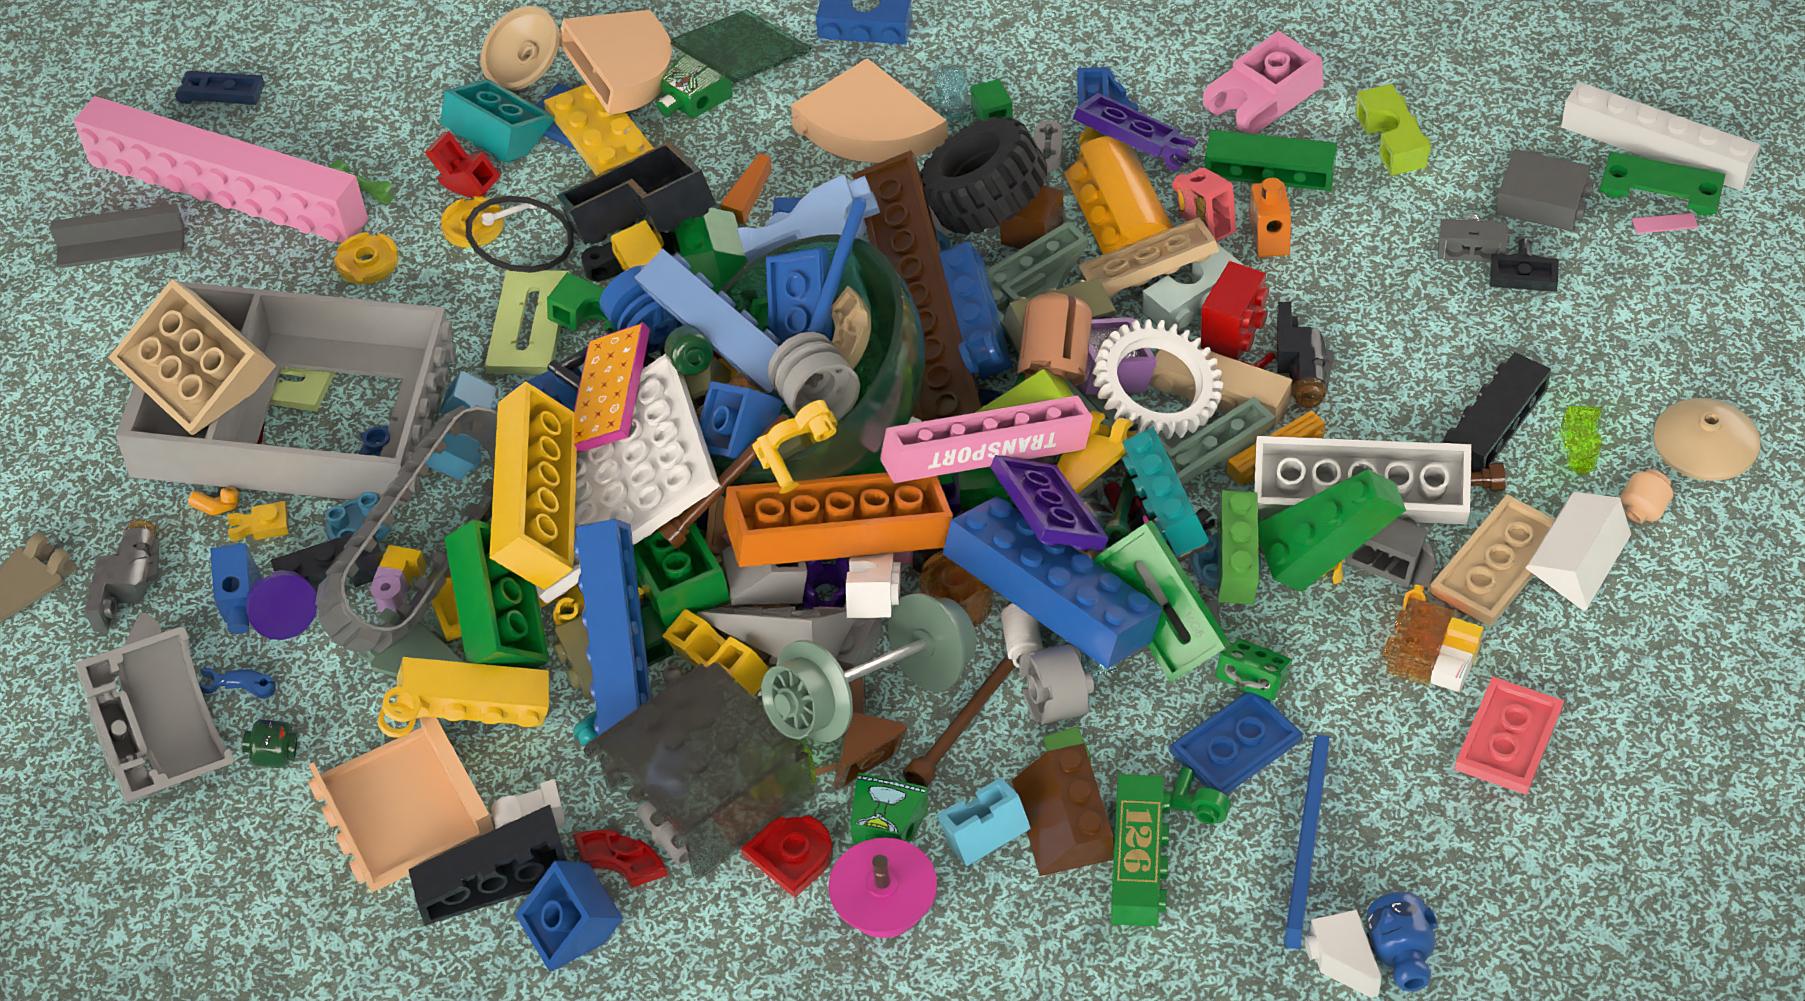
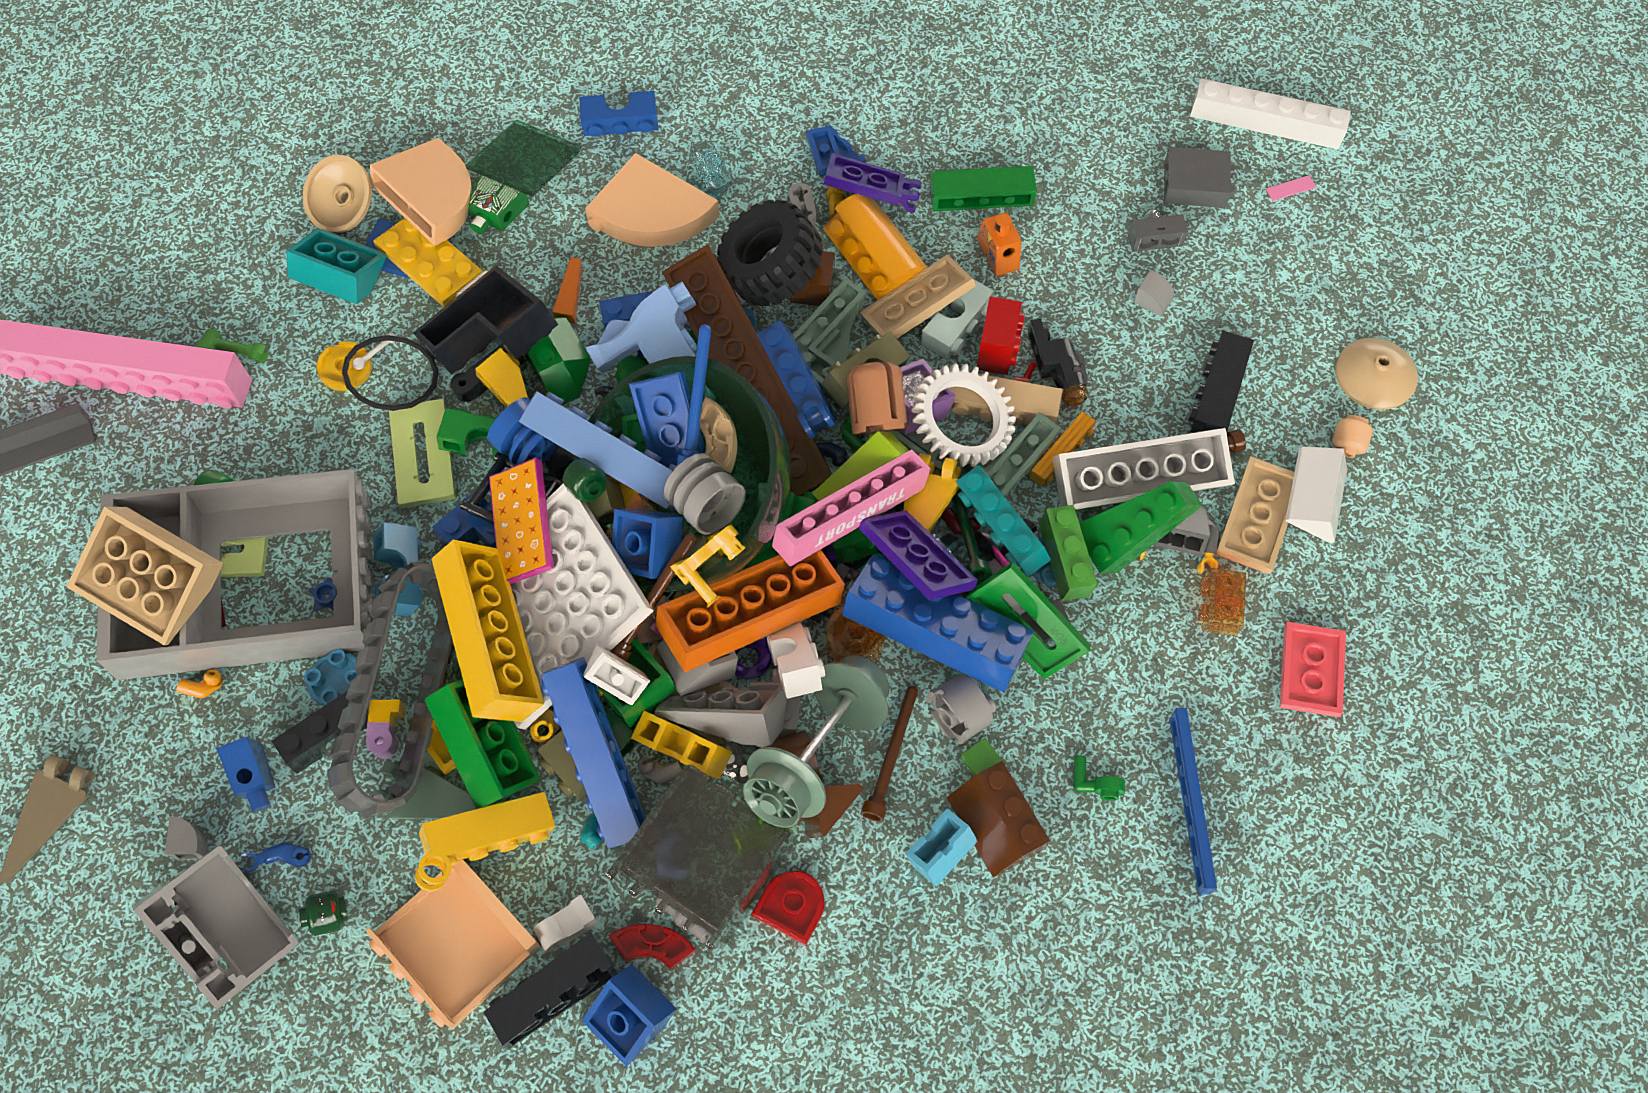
camera: 20 degrees left, 15 degrees up
(124, 575) = (143, 777): flat silver plate -> none
(220, 87) = (80, 276): dark blue plate -> none
(263, 522) = (249, 695): yellow plate -> none
(281, 605) = (293, 780): dark purple tile -> none
(370, 270) = (264, 432): yellow tile -> none
(461, 172) = (319, 321): red brick -> none
(659, 550) = (615, 675): none -> white slope
(882, 886) = (882, 930): dark pink piece -> none
(886, 809) = (858, 858): green torso -> none
(990, 100) = (747, 176): green brick -> none
(1020, 633) = (918, 668): white head -> none
(1138, 850) = (1069, 848): green brick -> none
(1207, 197) = (945, 236): coral torso -> none
(1236, 742) = (1109, 722): blue tile -> none
(1254, 668) = (1109, 656): green piece -> none
(1265, 83) = (960, 118): bright pink brick -> none
(1344, 952) = (1250, 894): white slope -> none
(1402, 143) = (1058, 127): lime arch -> none
(1403, 937) = (1290, 869): blue piece -> none
(1446, 303) = (1154, 293): none -> light grey brick
(1457, 654) = (1256, 608): leg -> none
(1524, 270) = (1203, 251): black plate -> none
(1581, 437) = (1293, 400): clear neon green leg -> none
(1698, 185) = (1259, 150): green brick -> none

